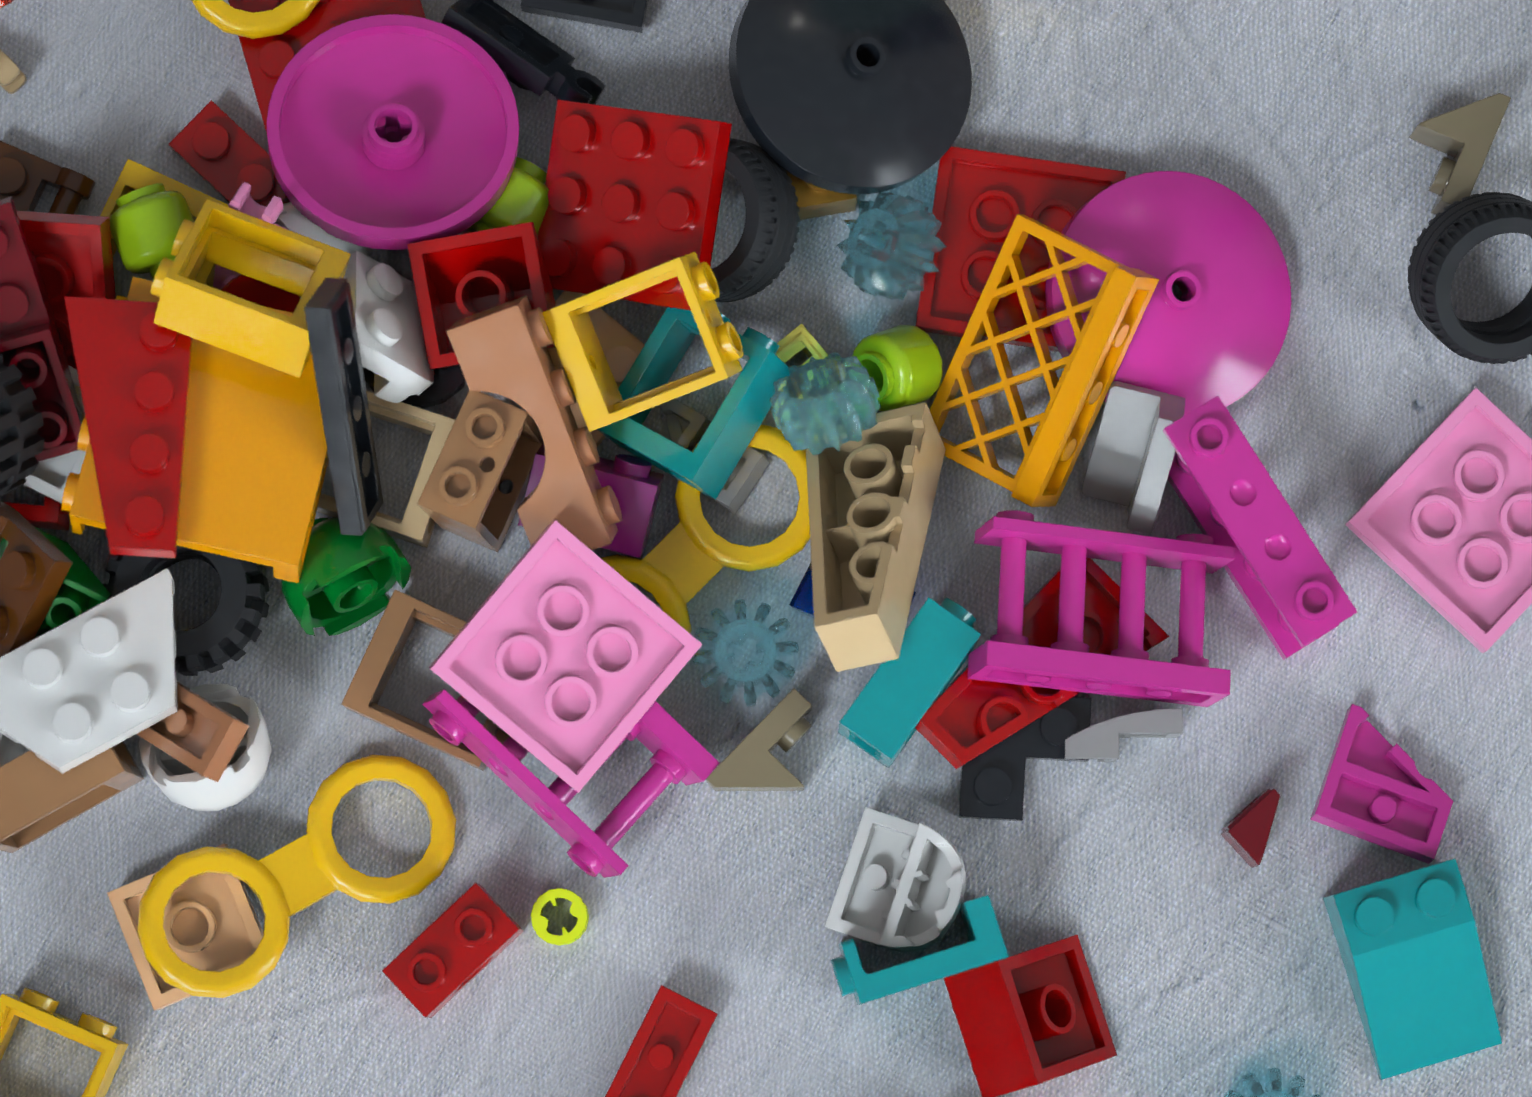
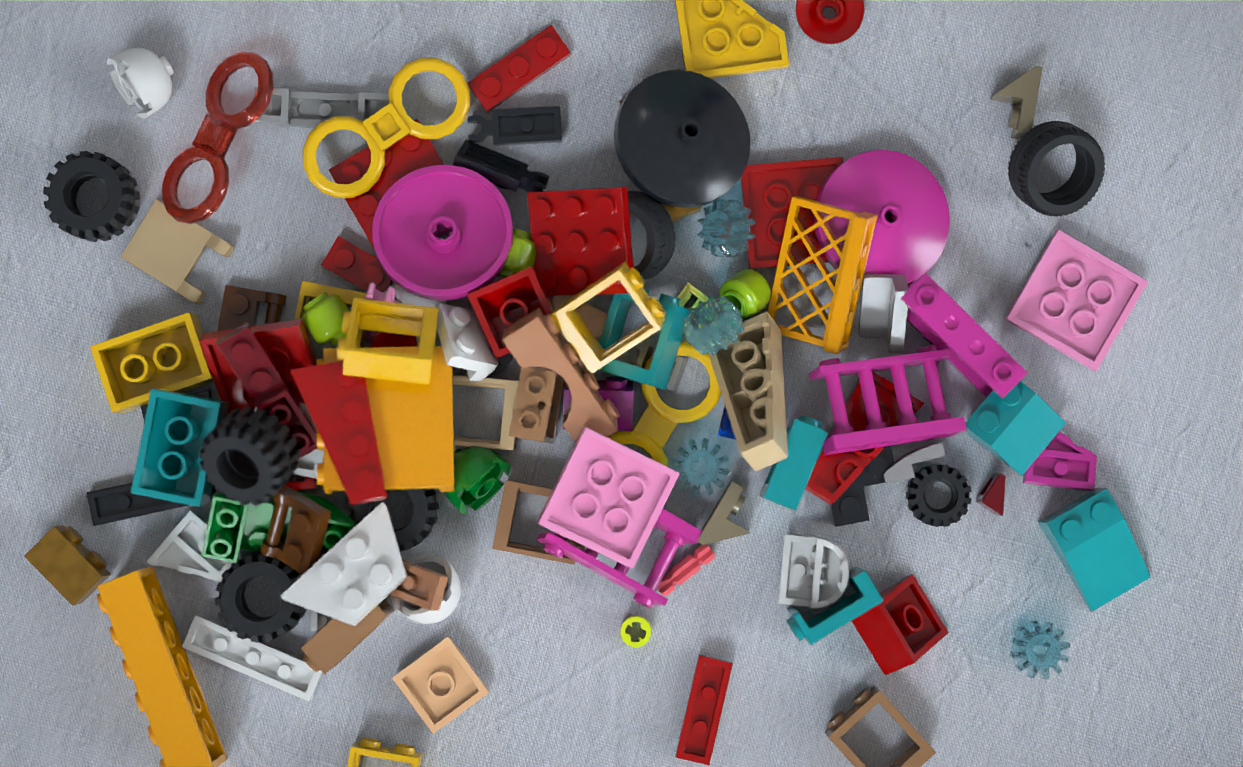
camera: 10 degrees left, 5 degrees up
(296, 876) = (490, 644): yellow bar -> none
(344, 405) = (456, 392): black tile -> none
(452, 951) = (584, 664): red brick -> none
(675, 828) = (685, 569): none -> coral axle
(1193, 797) = (959, 495): none -> black tyre
(1318, 711) = (1015, 426): none -> teal slope

